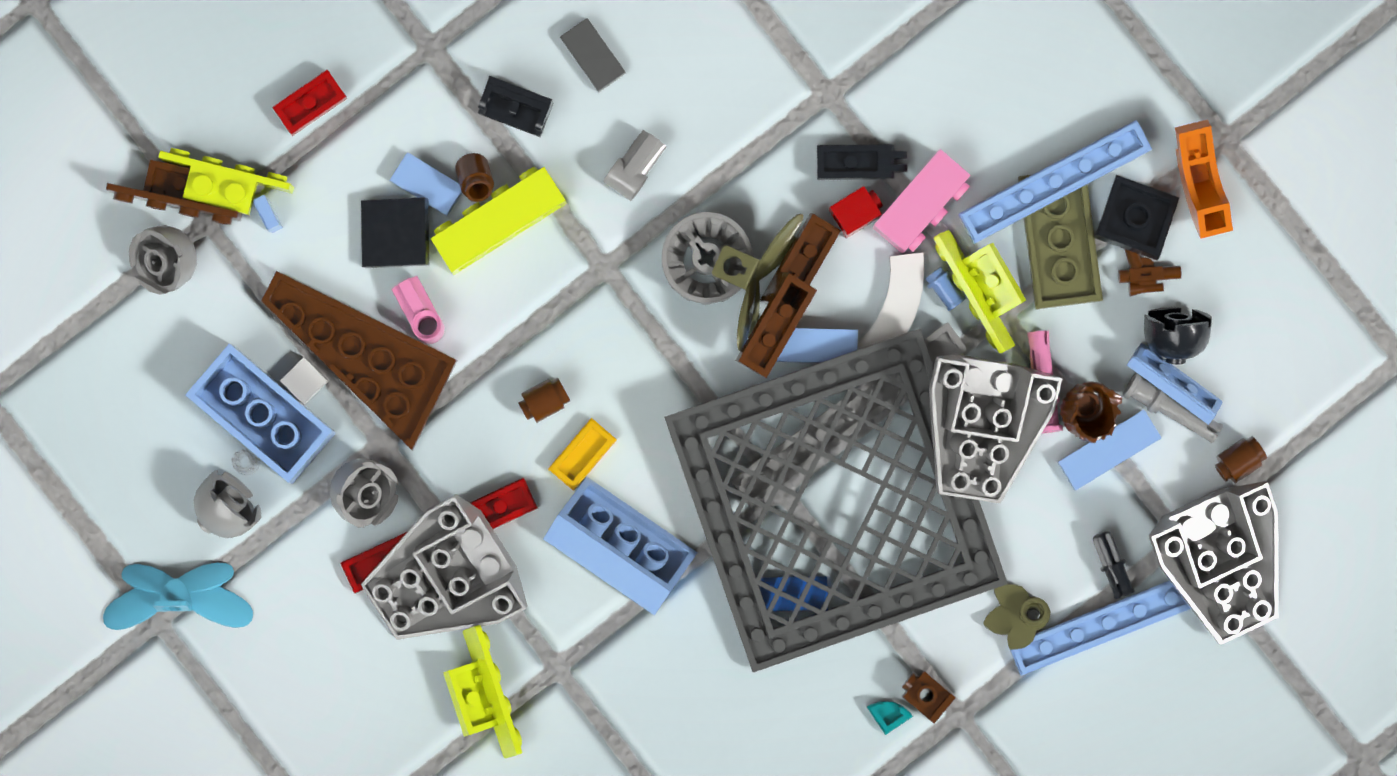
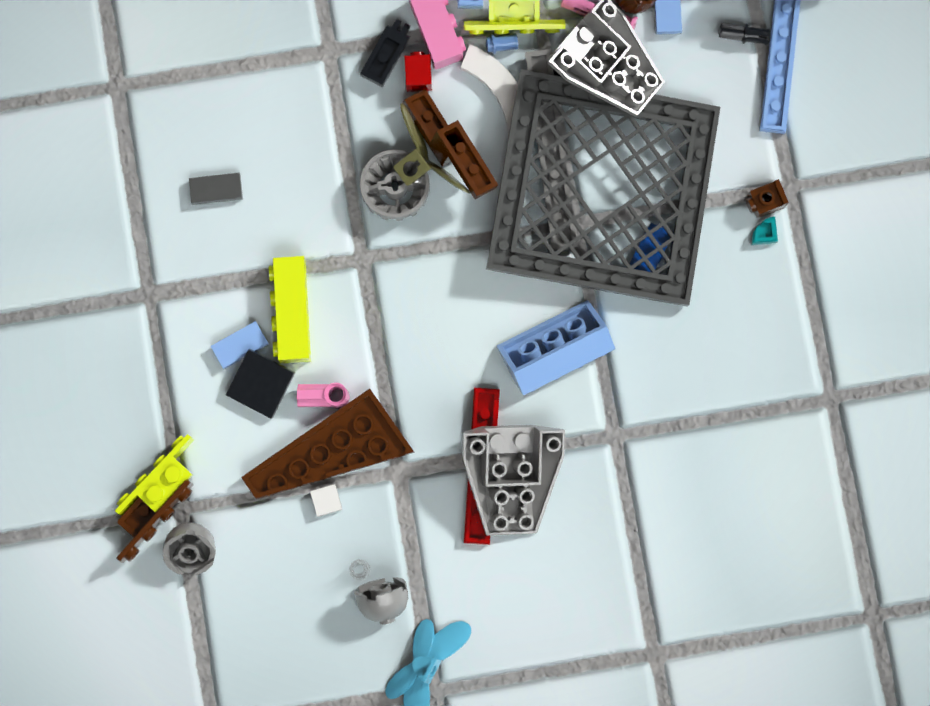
camera: 60 degrees left, 5 degrees down
(260, 413) = (332, 539): light blue brick -> none
(267, 214) = (199, 462): light blue tile -> none
(309, 102) = (139, 393): red plate -> none
(364, 492) = (425, 498): light grey cylinder -> none
(474, 177) = (253, 308): reddish brown brick -> none
(479, 696) = (606, 495): neon yellow bracket -> none
(515, 106) = (221, 257): black hinge -> none
(544, 400) = (429, 344): reddish brown brick -> none
(582, 454) = (479, 340): yellow tile -> none
(630, 172) = (307, 203): light grey piece -> none
(818, 345) = (494, 142): light blue tile -> none
(1012, 617) = (744, 116): olive plate -> none

